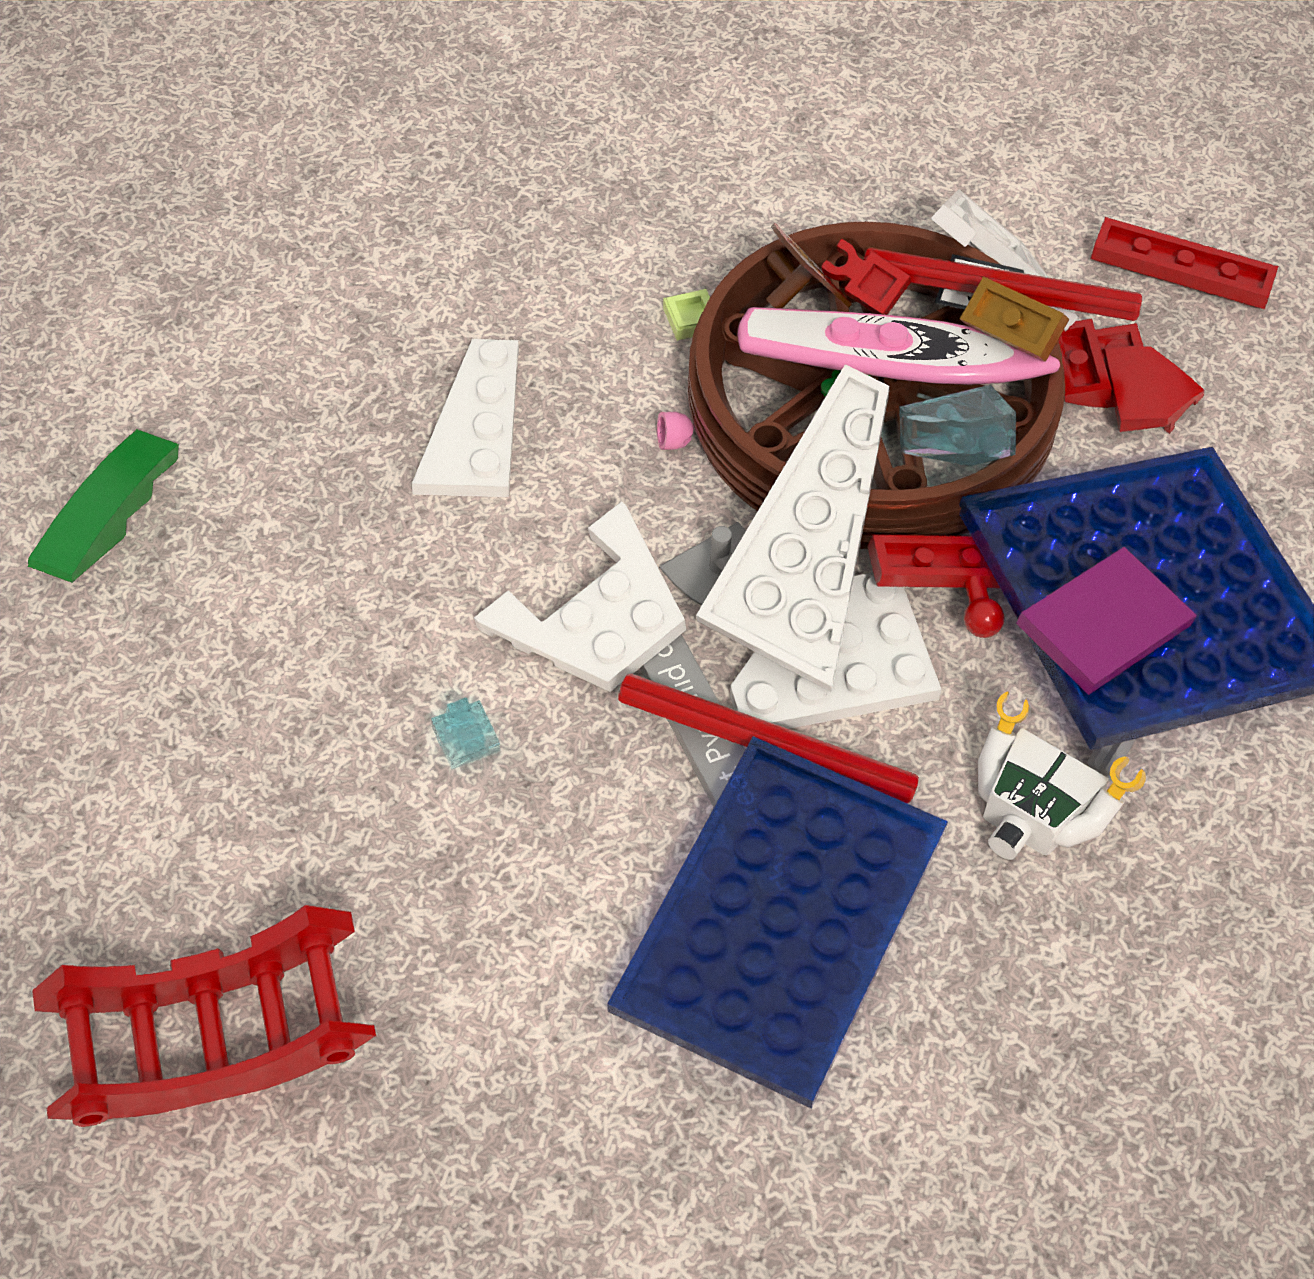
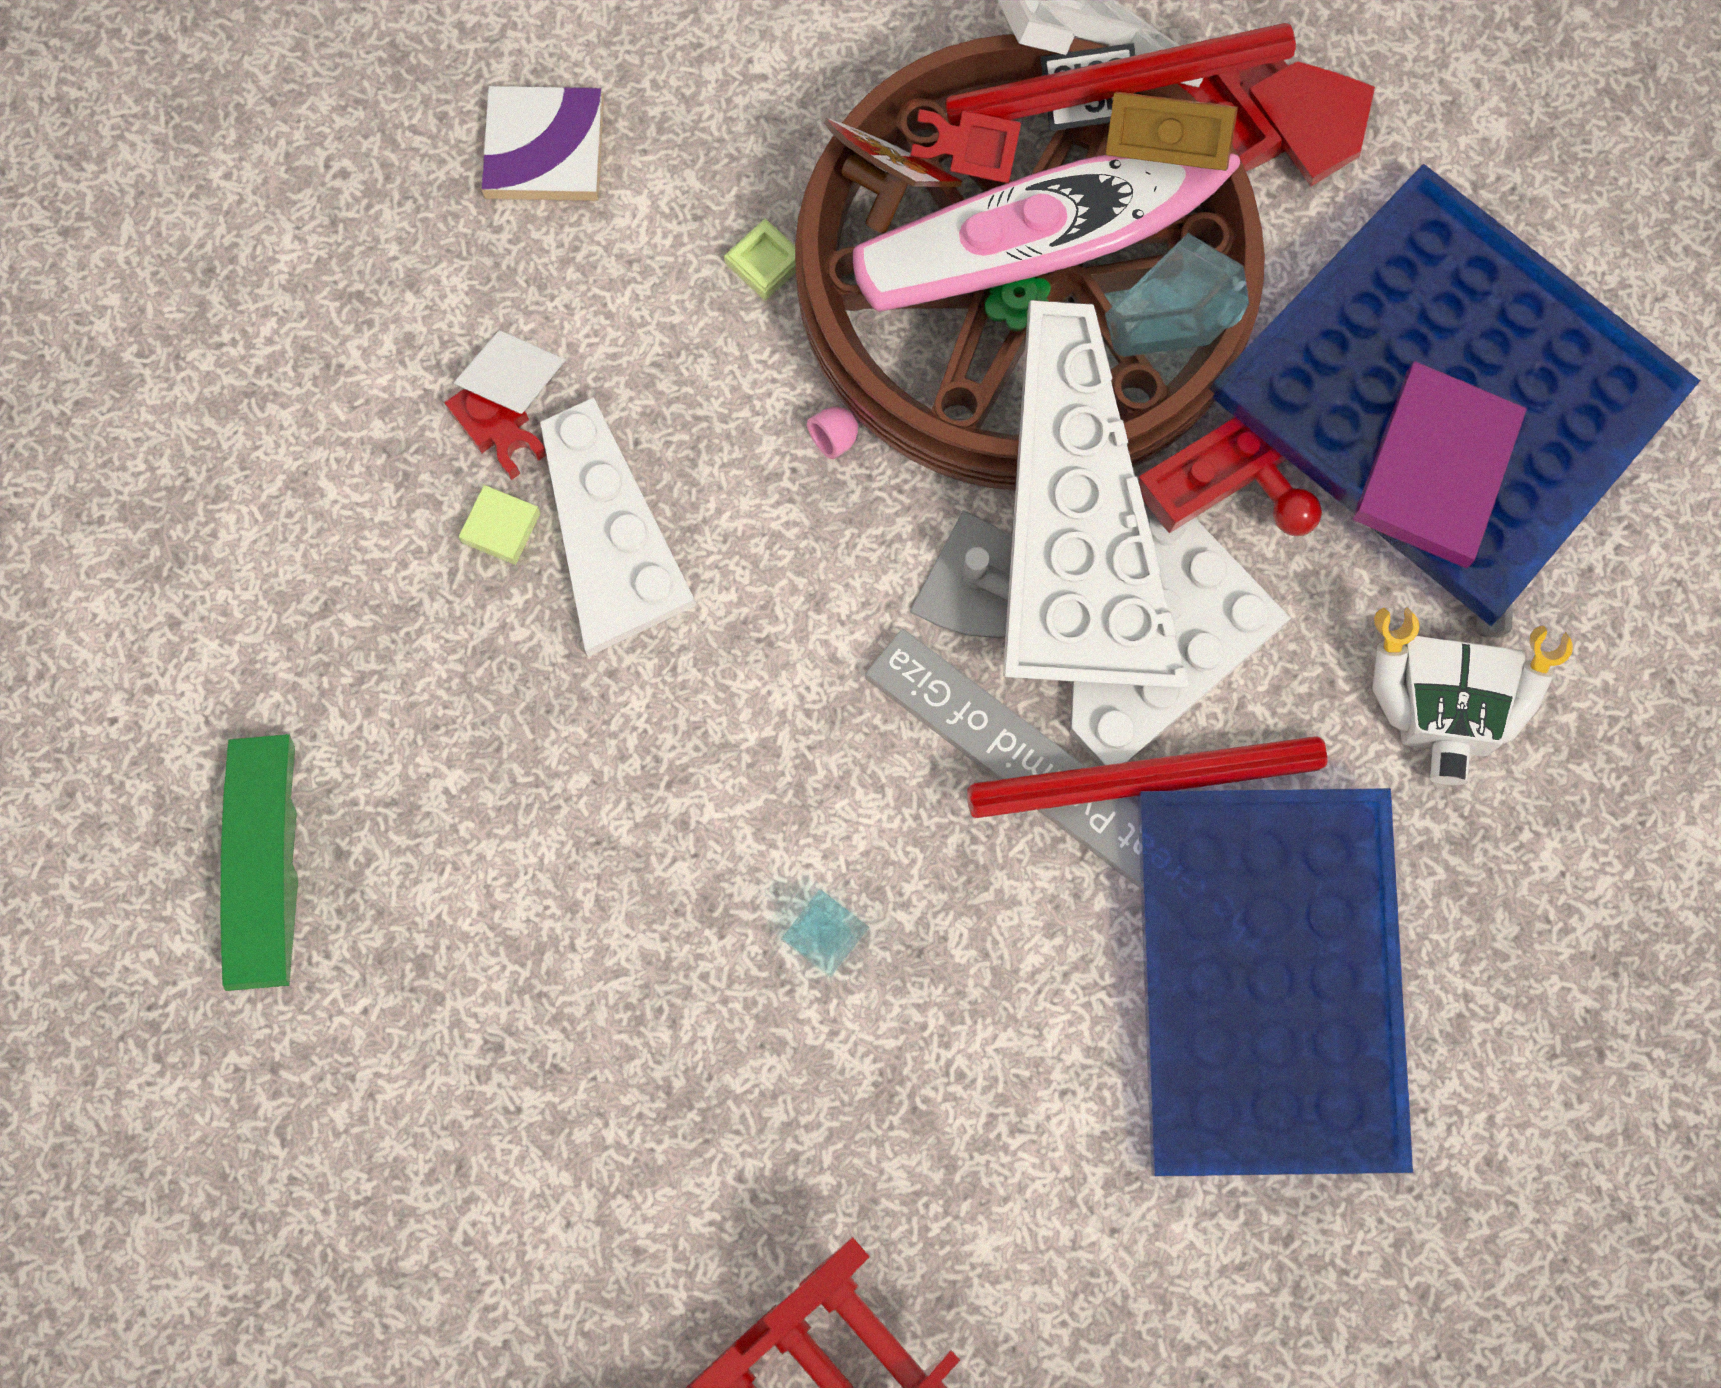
camera: 25 degrees left, 20 degrees up
(404, 388) = (499, 524): none -> yellowish green tile
(442, 327) = (496, 425): none -> red plate
(471, 302) = (509, 371): none -> white sticker
(582, 188) = (543, 143): none -> tile
(610, 623) = (907, 718): white wing -> none

